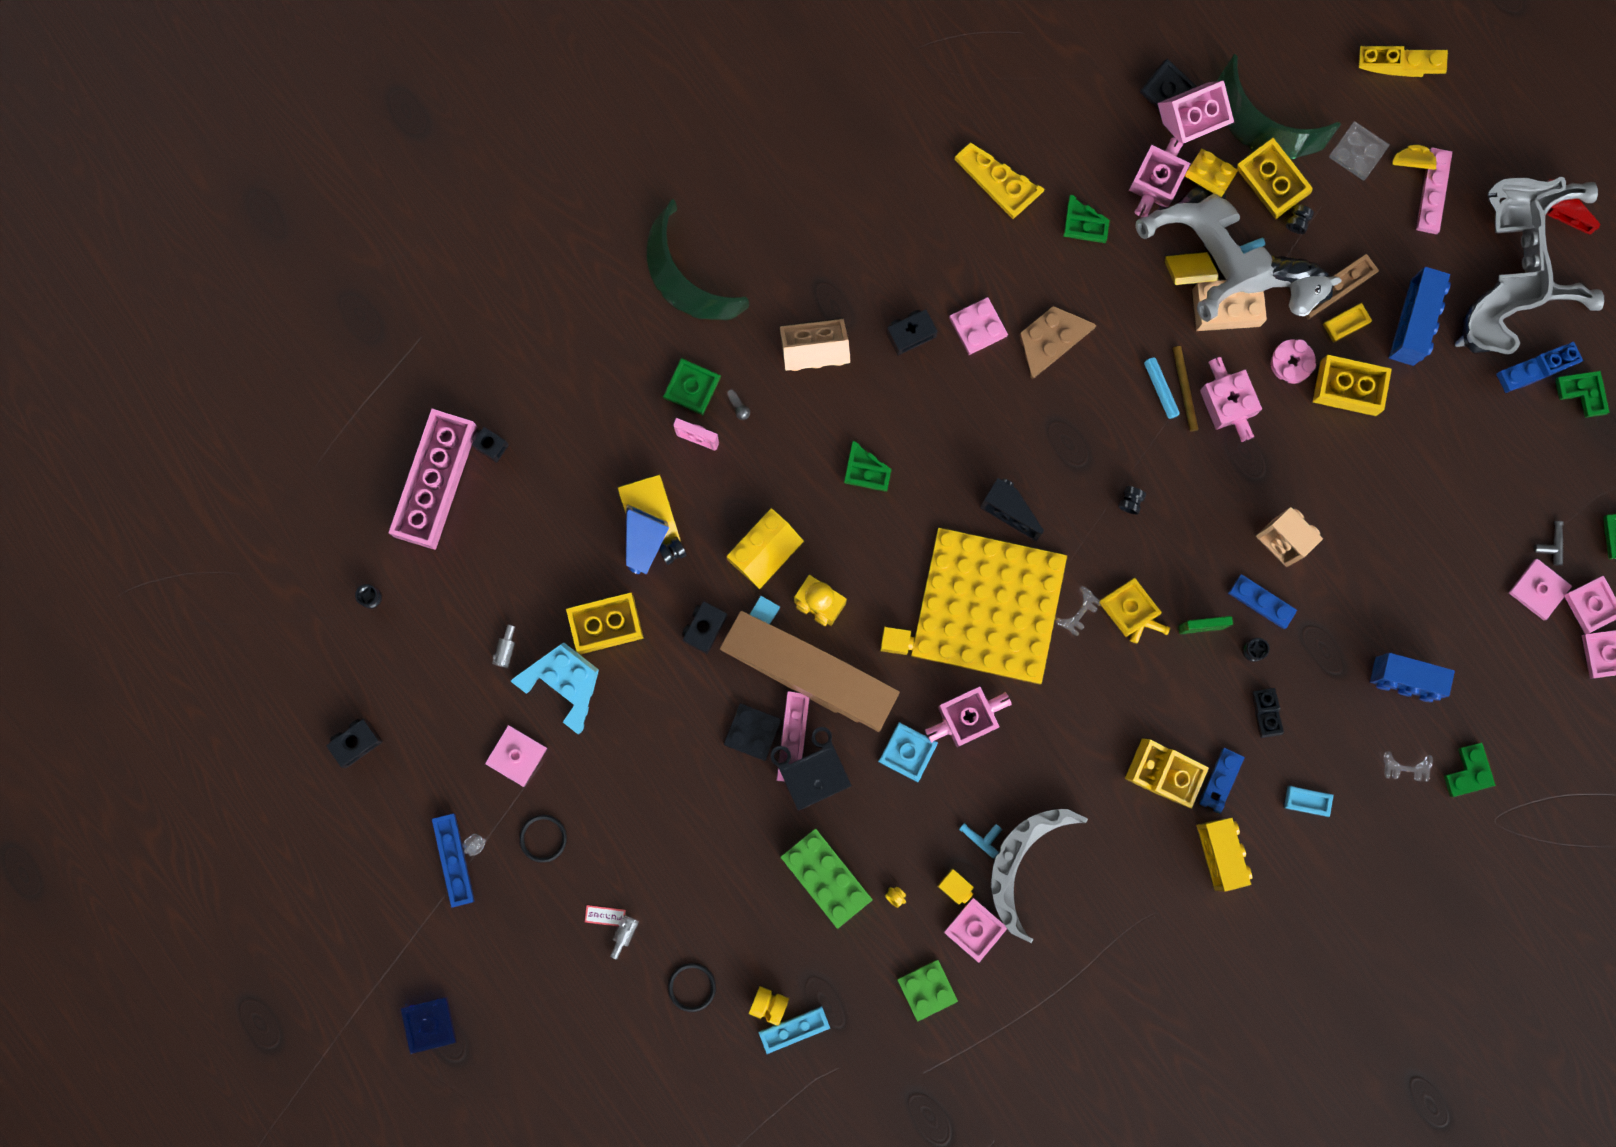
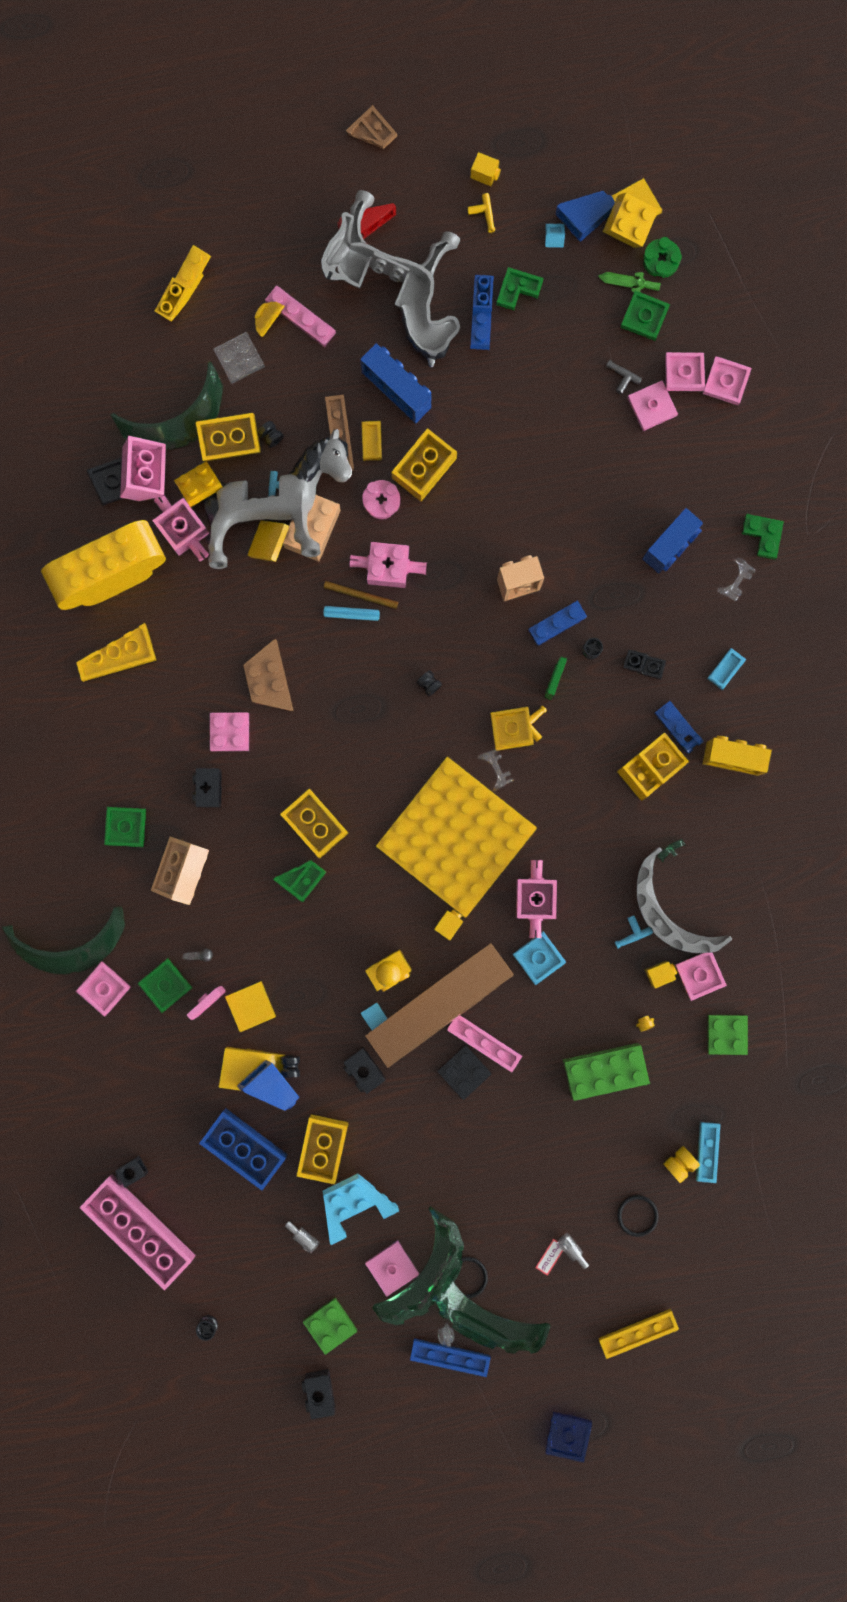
camera: 60 degrees left, 5 degrees up
(427, 721) = (330, 1326): none -> bright green plate
(501, 875) = (484, 1326): none -> clear green windscreen
(525, 805) = (418, 1295): none -> clear green windscreen
(566, 543) = (243, 1149): none -> blue brick
(570, 1047) = (638, 1333): none -> yellow plate
(658, 328) = (103, 989): none -> bright pink plate
(712, 482) = (250, 1006): none -> yellow tile
(765, 548) = (325, 992): yellow slope -> none
(815, 775) = (523, 1043): black piece -> none
(830, 270) = (125, 827): none -> green plate
(930, 454) = (314, 823): none -> yellow brick
(1010, 507) = (386, 783): black slope -> none
(1081, 120) = (104, 566): none -> yellow brick
(1084, 222) = (188, 604): green wing -> none
(1090, 834) = (670, 849): none -> clear green piece

